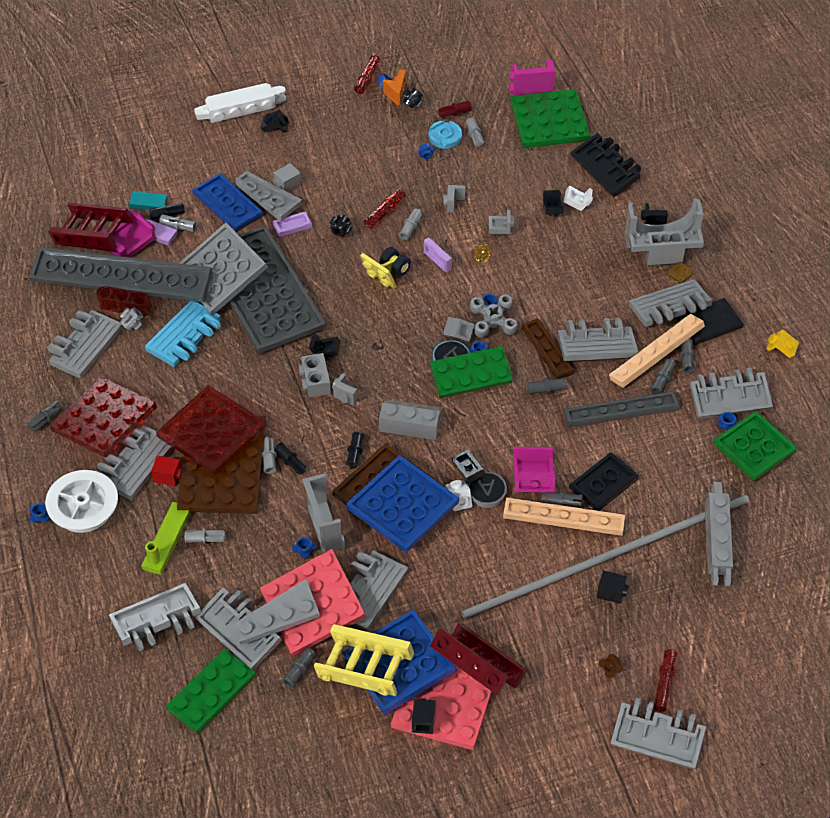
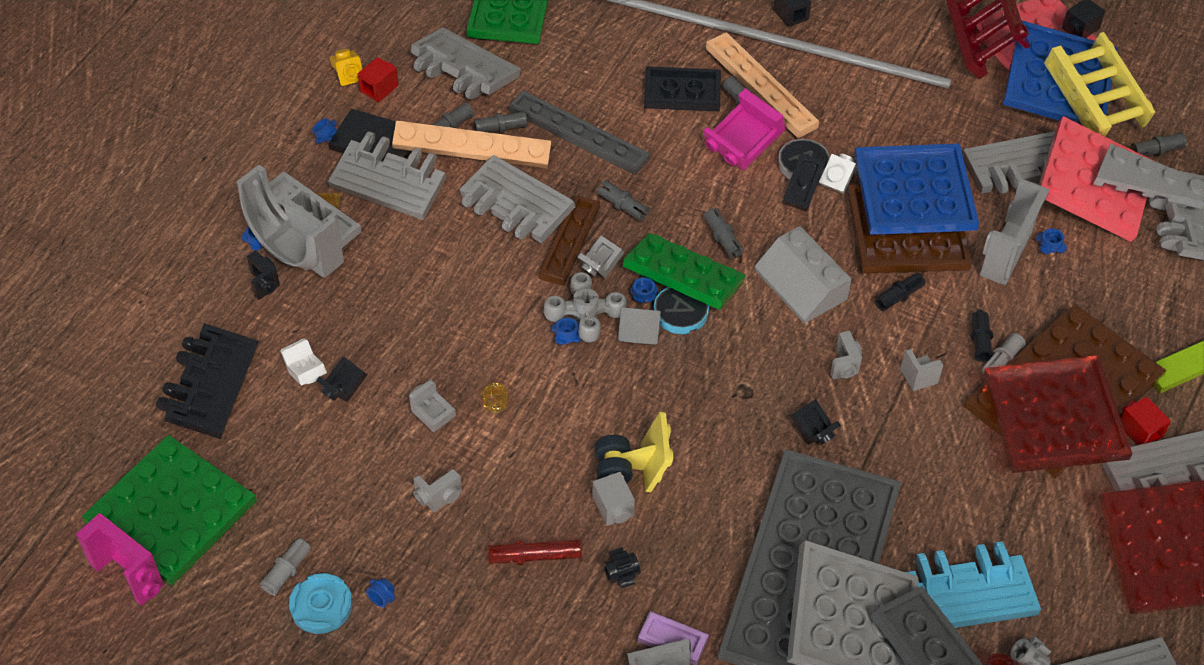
camera: 135 degrees left, 0 degrees up
(204, 536) = (1154, 325): light grey axle -> none
(302, 412) = (920, 371): none -> light grey panel
(315, 375) = (858, 397): light grey brick -> none
(374, 246) = (613, 499): none -> light grey brick
(410, 224) = (531, 501): light grey axle -> none
(437, 255) = (553, 430): lavender tile -> none
(454, 109) = (261, 625): dark red axle -> none
(476, 409) = (723, 233): none -> dark grey pin
(517, 343) = (601, 257): none -> light grey bracket
(725, 418) = (500, 47): blue plate -> none
(736, 301) = (324, 130): none -> blue plate
(754, 347) = (378, 79): none -> red brick

